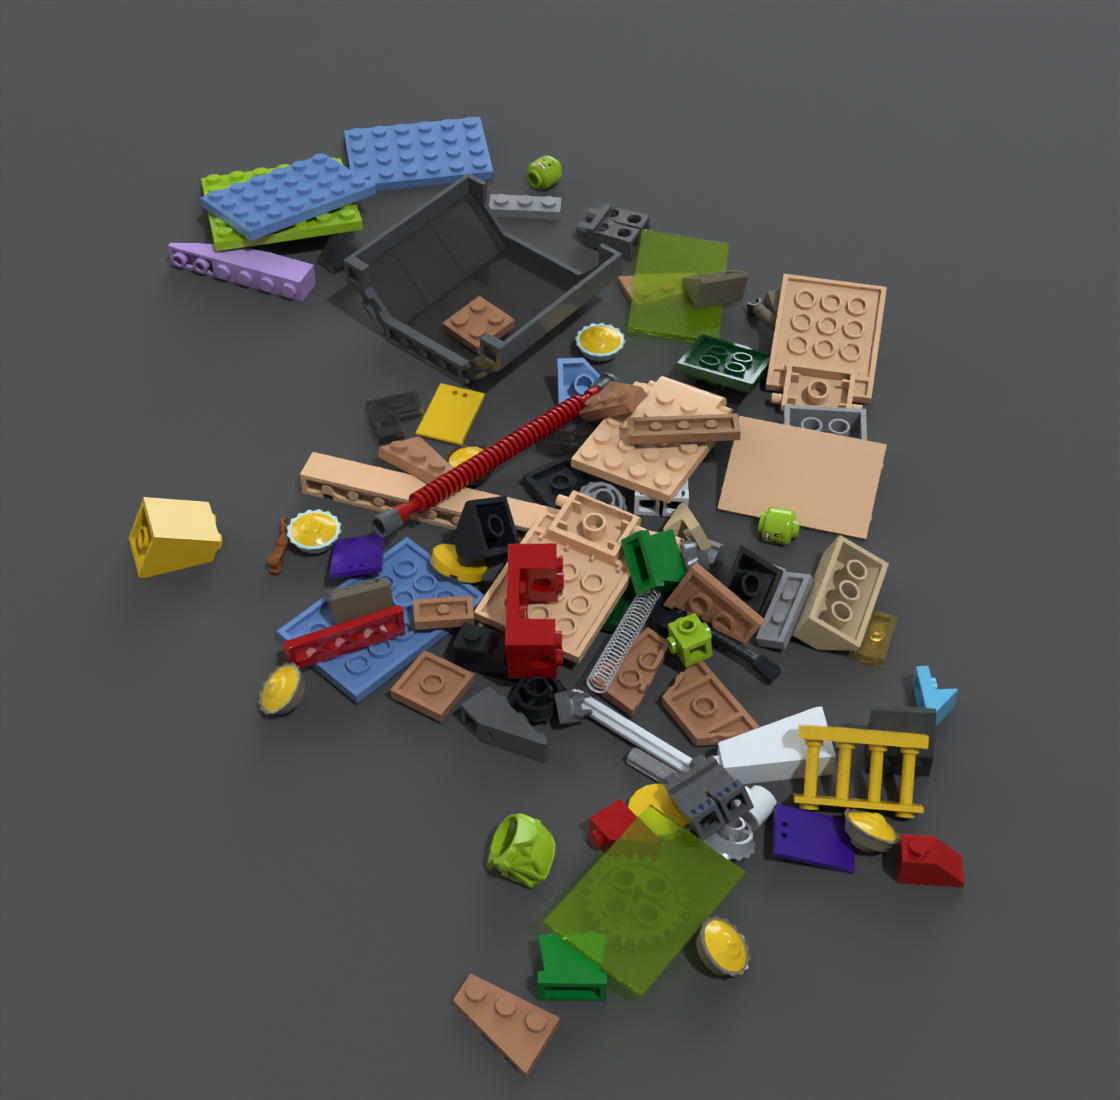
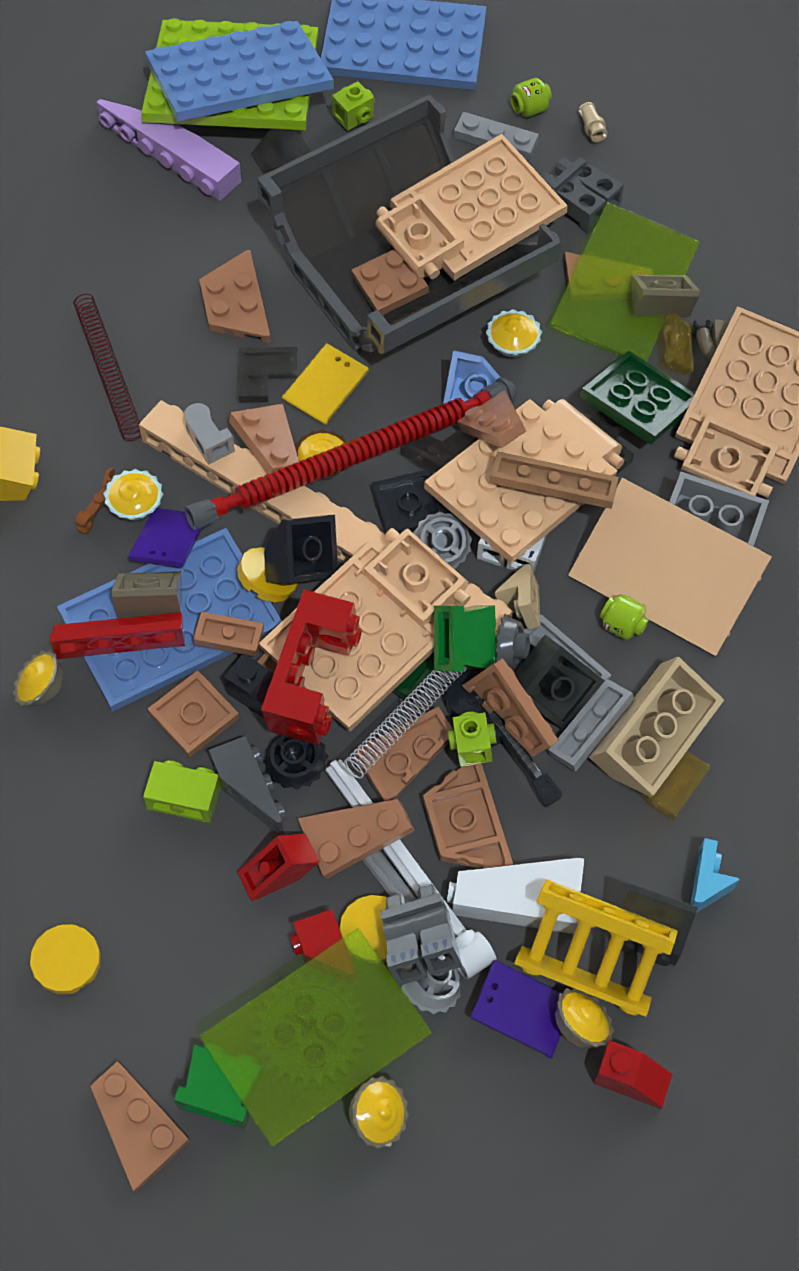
camera: 15 degrees right, 15 degrees up
(252, 455) = (98, 368): none -> dark red piece
(345, 369) = (234, 299): none -> nougat wing
(366, 465) = (205, 435): none -> light grey leg
(389, 907) = (65, 959): none -> yellow tile
(394, 205) = (353, 105): none -> lime brick
(446, 747) = (182, 791): none -> lime brick
(523, 855) = (214, 939): lime piece -> none
(528, 258) = (469, 211): none -> light nougat plate
(555, 782) = (278, 865): none -> red slope
(570, 707) = (322, 782): flat silver tile -> none
(605, 182) = (594, 124): none -> tan pin
(614, 740) = (354, 833): none -> nougat wing
(741, 321) = (678, 344): none -> clear yellow plate

